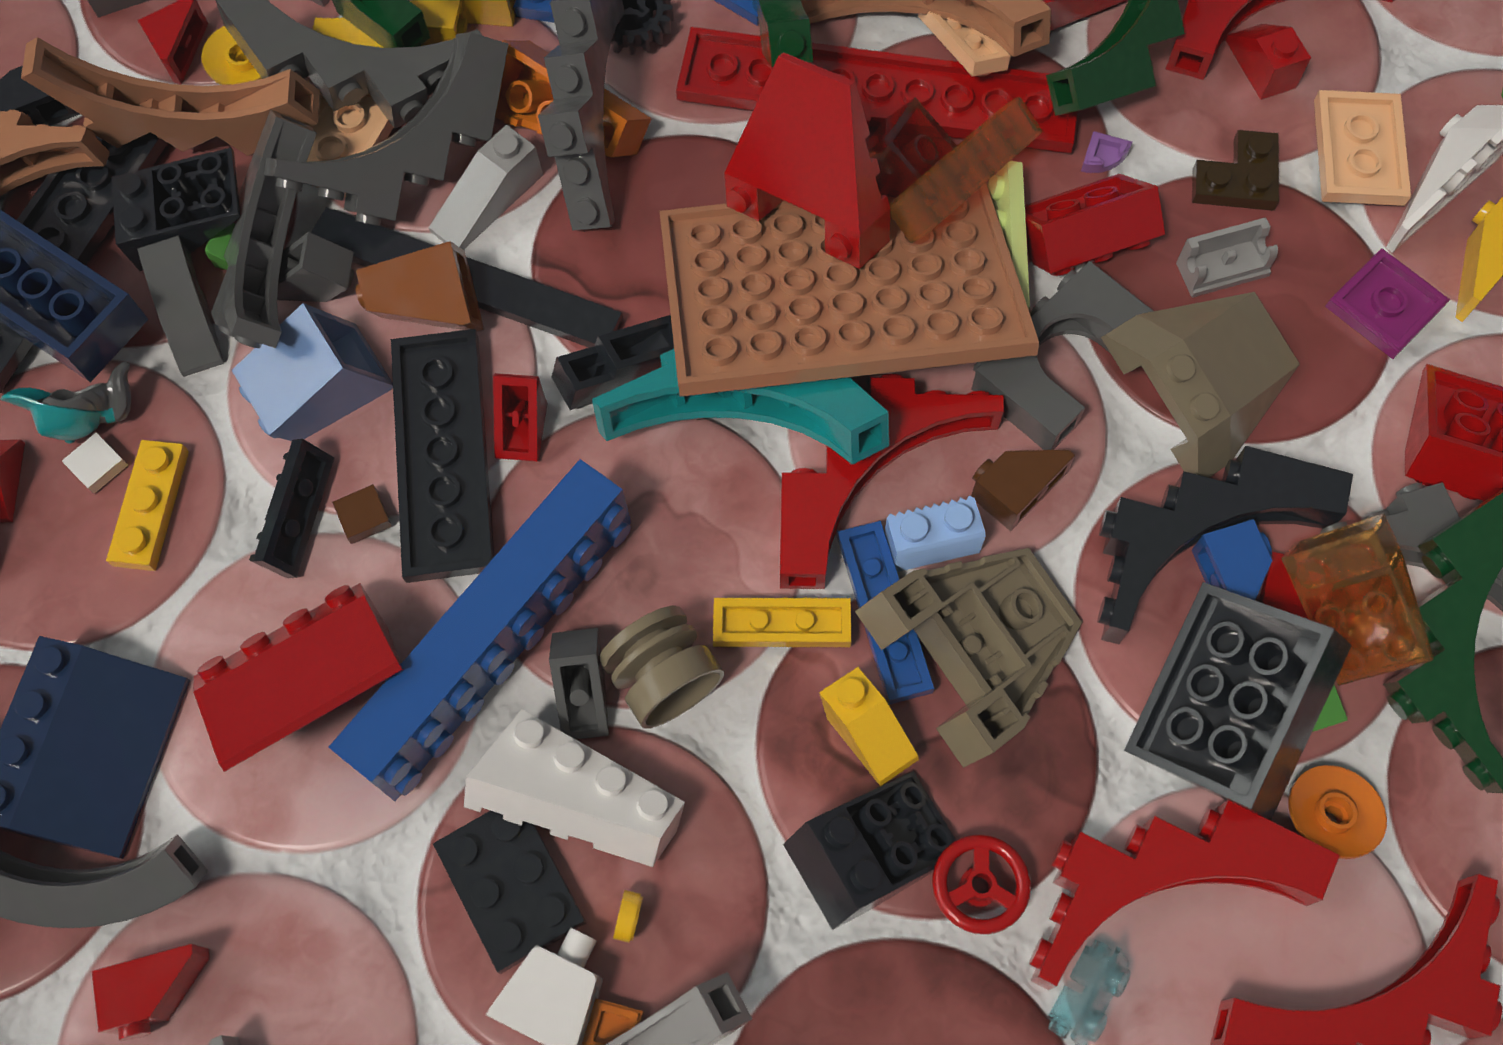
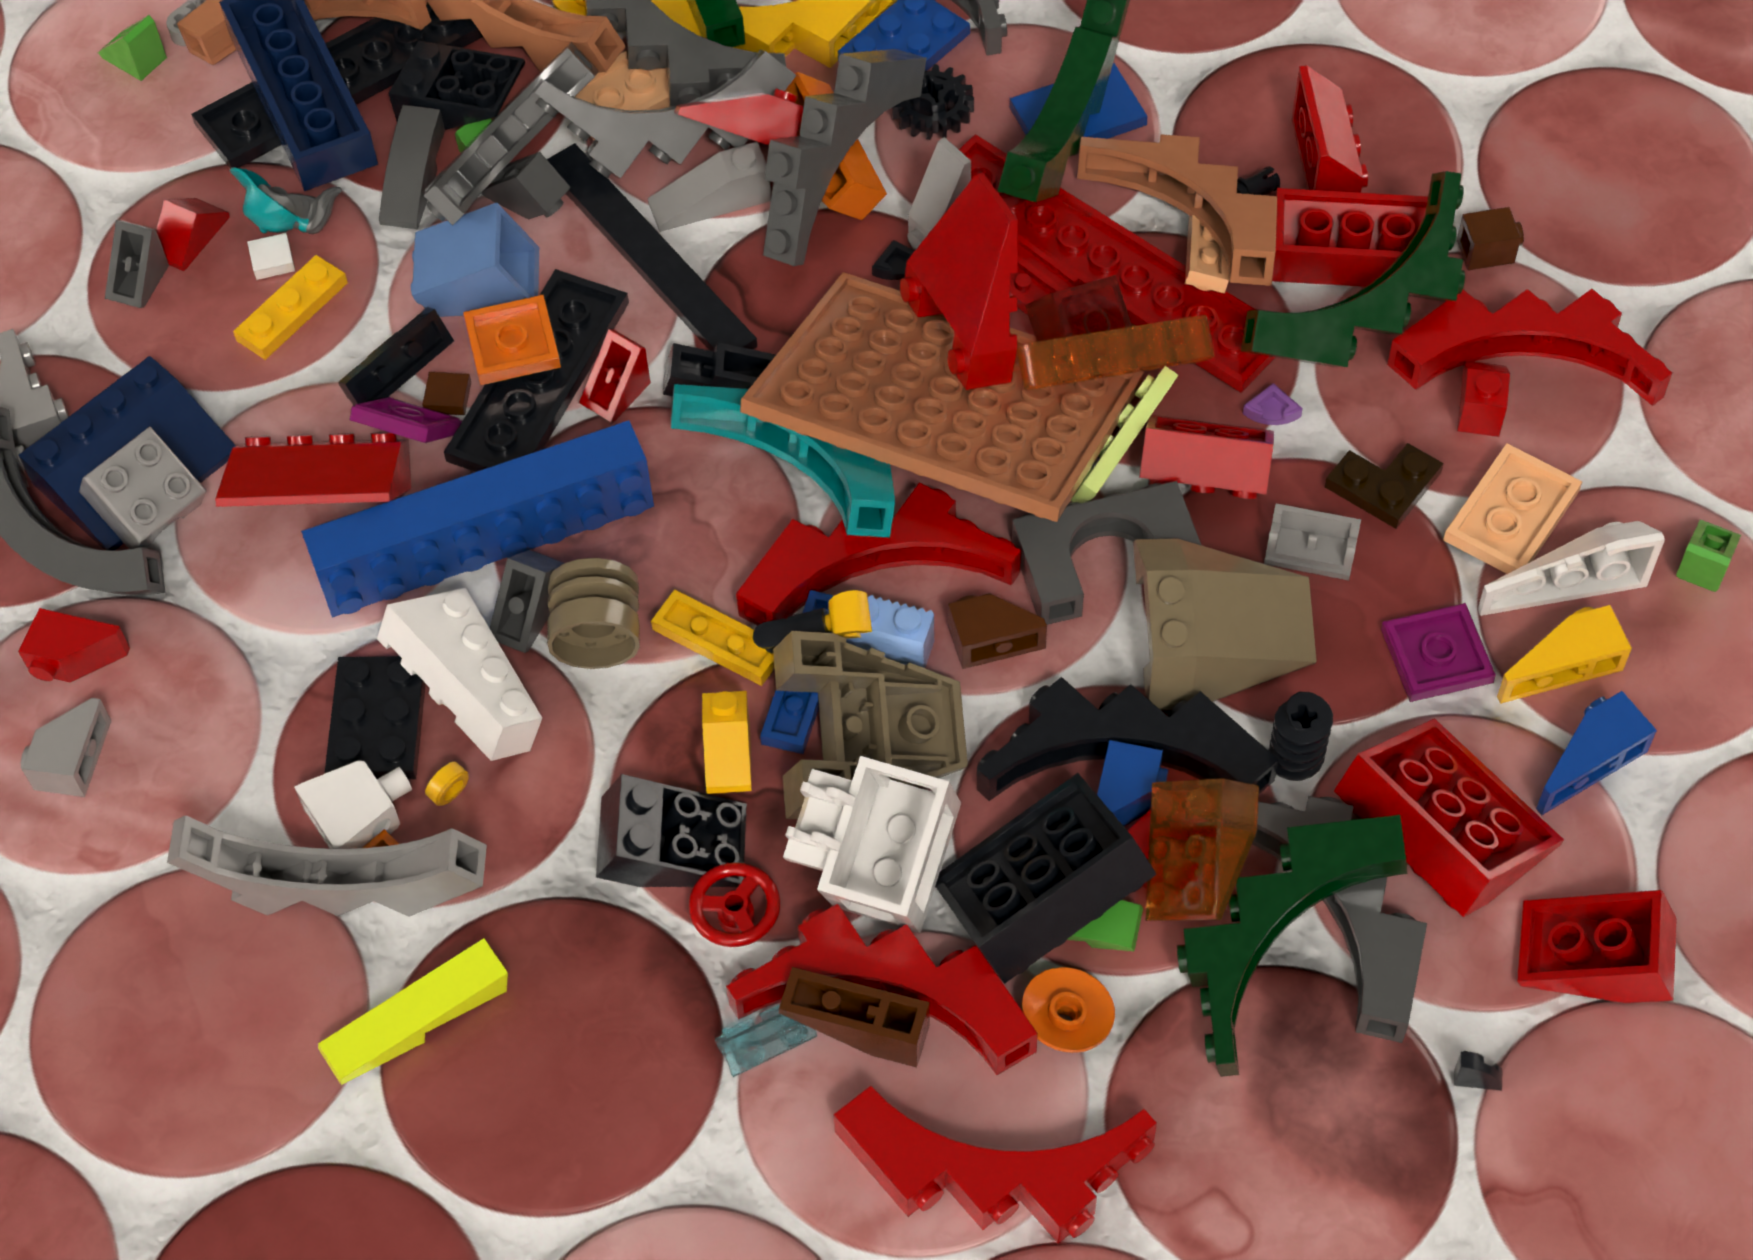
camera: 30 degrees right, 10 degrees down
(124, 784) = (142, 490): none -> light grey piece
(345, 565) = (405, 419): none -> magenta tile
(399, 431) = (512, 340): none -> orange plate
(422, 288) = (606, 241): dark orange slope -> none
(493, 100) = (749, 116): none -> slope
(698, 177) = (892, 262): none -> black tile
(716, 101) = (941, 185): none -> light grey slope
(911, 547) = (846, 617): none -> piece
(1085, 759) = (875, 839): none -> white piece
(1175, 932) = (858, 1015): none -> reddish brown slope
(1360, 439) = (1301, 735): none -> black piece

